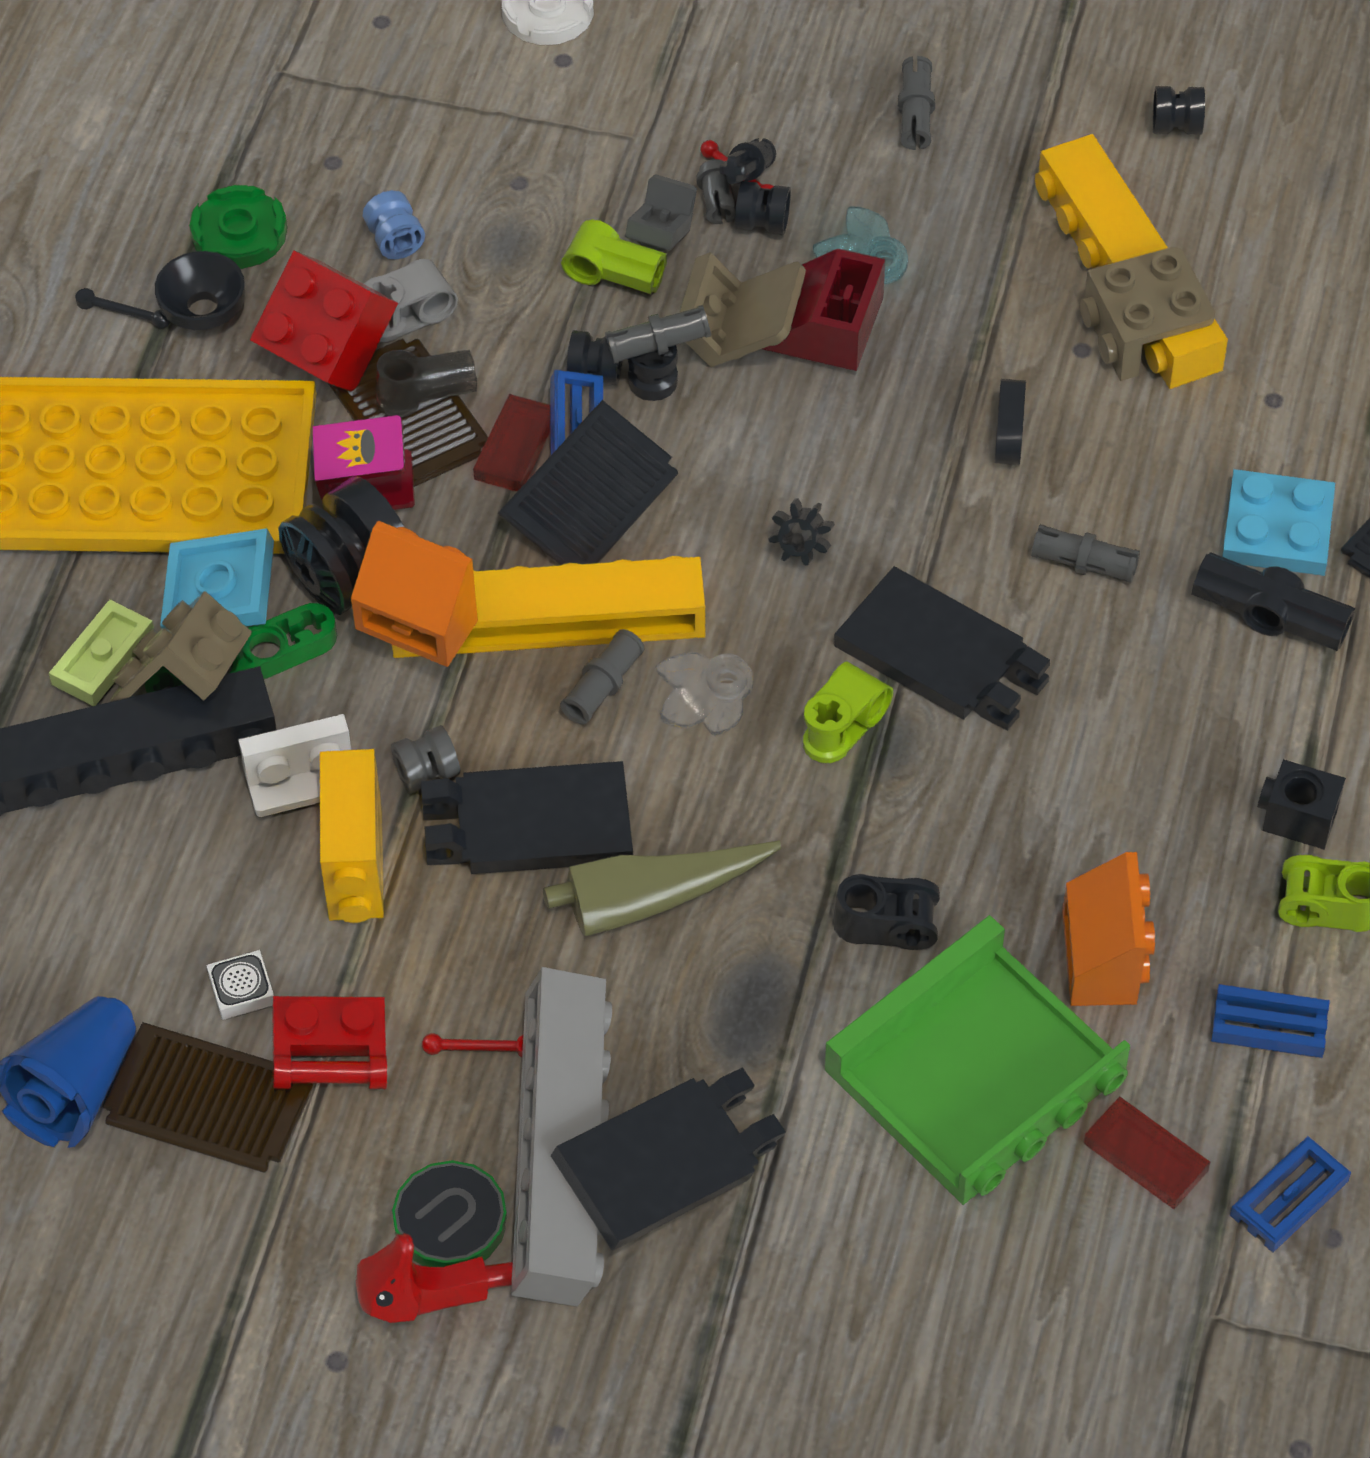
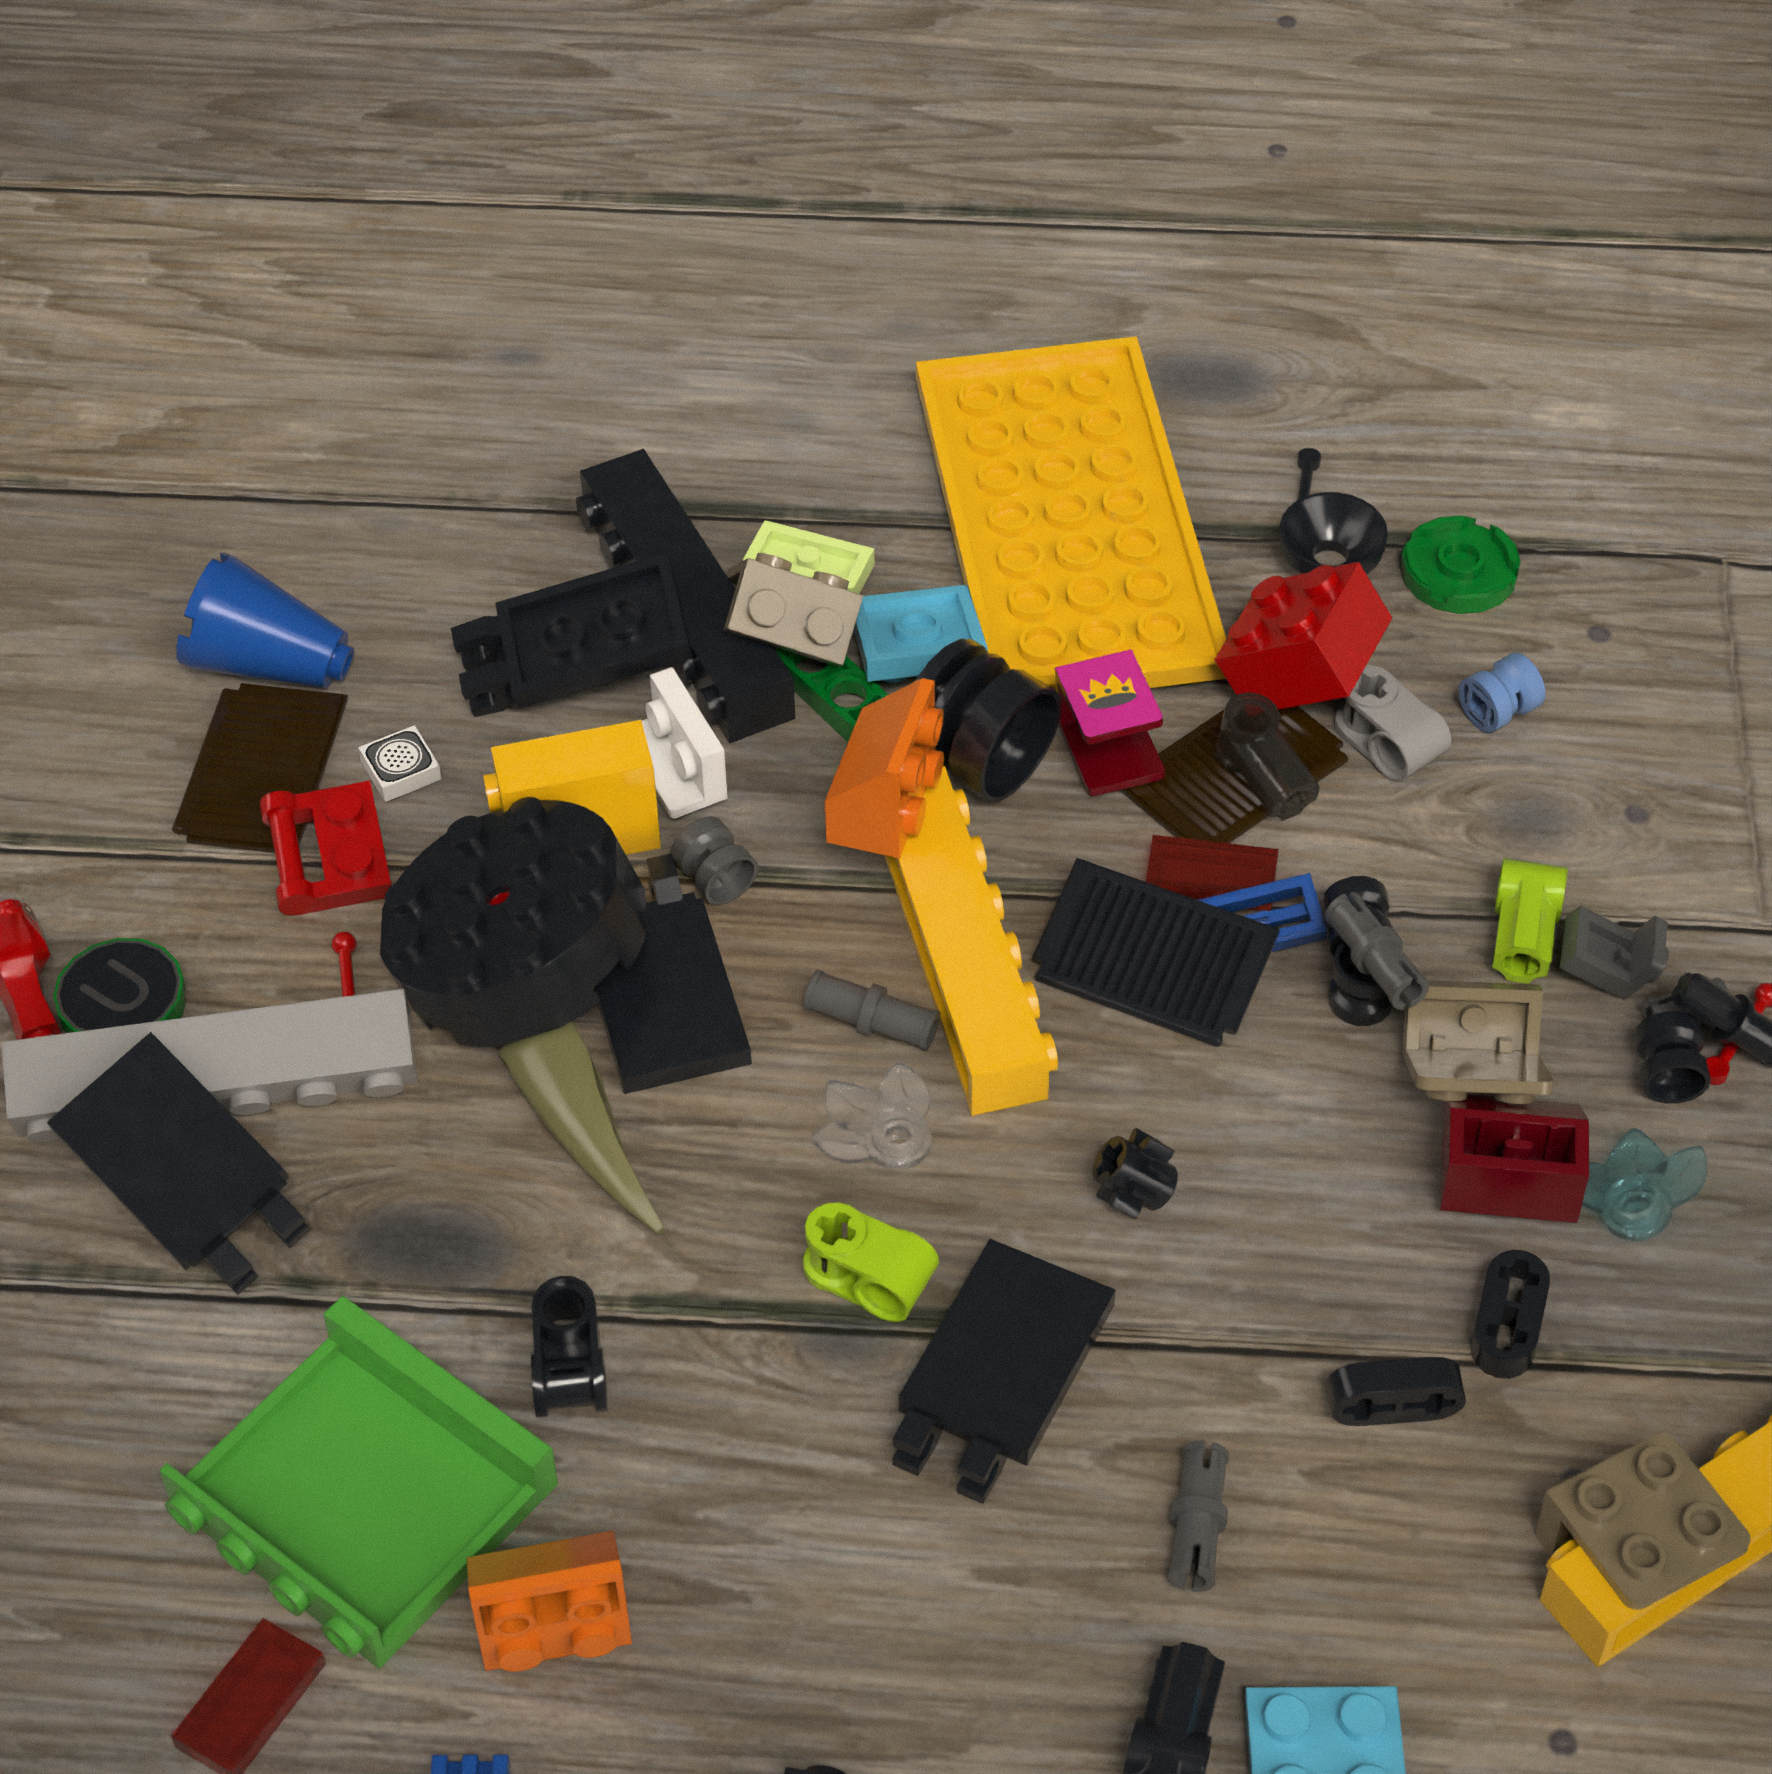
camera: 80 degrees right, 5 degrees down
(156, 817) = (573, 636): none -> black tile
(484, 885) = (513, 921): none -> black piece
(952, 350) = (1497, 1310): none -> black beam

